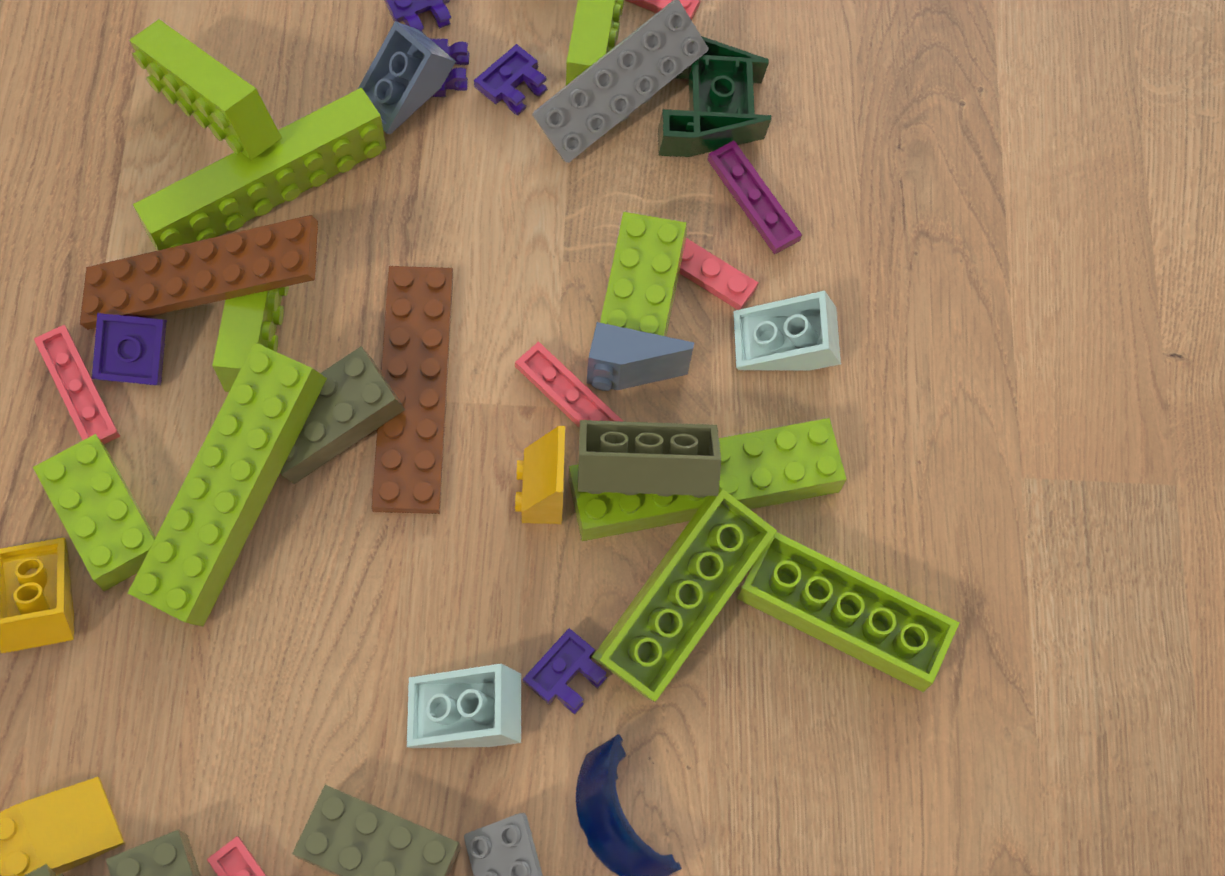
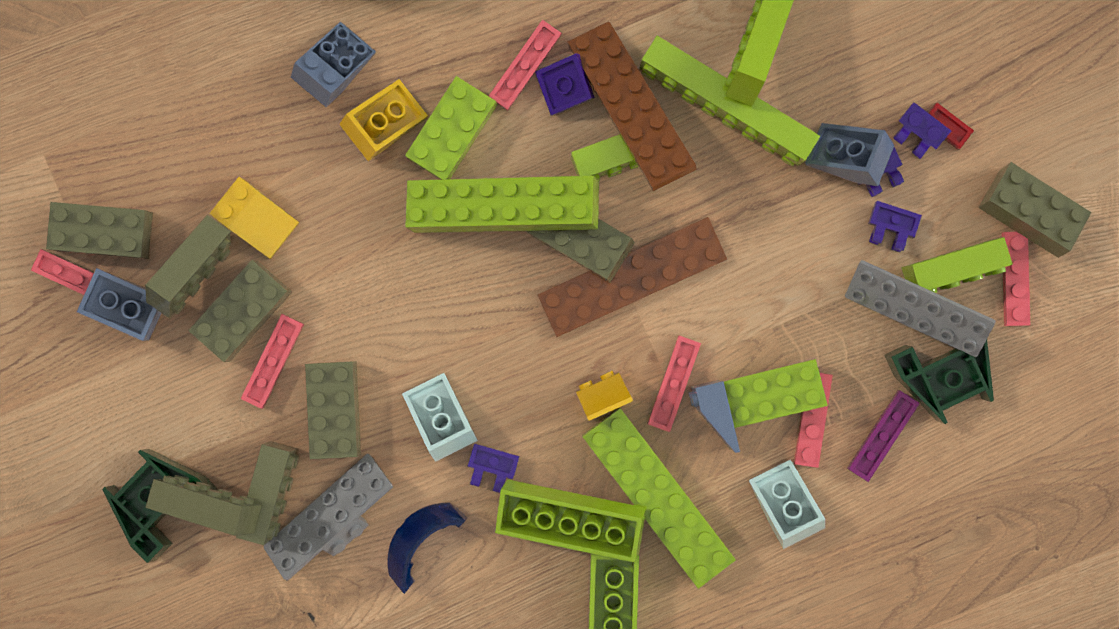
camera: 70 degrees right, 20 degrees up
(649, 458) = (641, 461): olive brick -> none

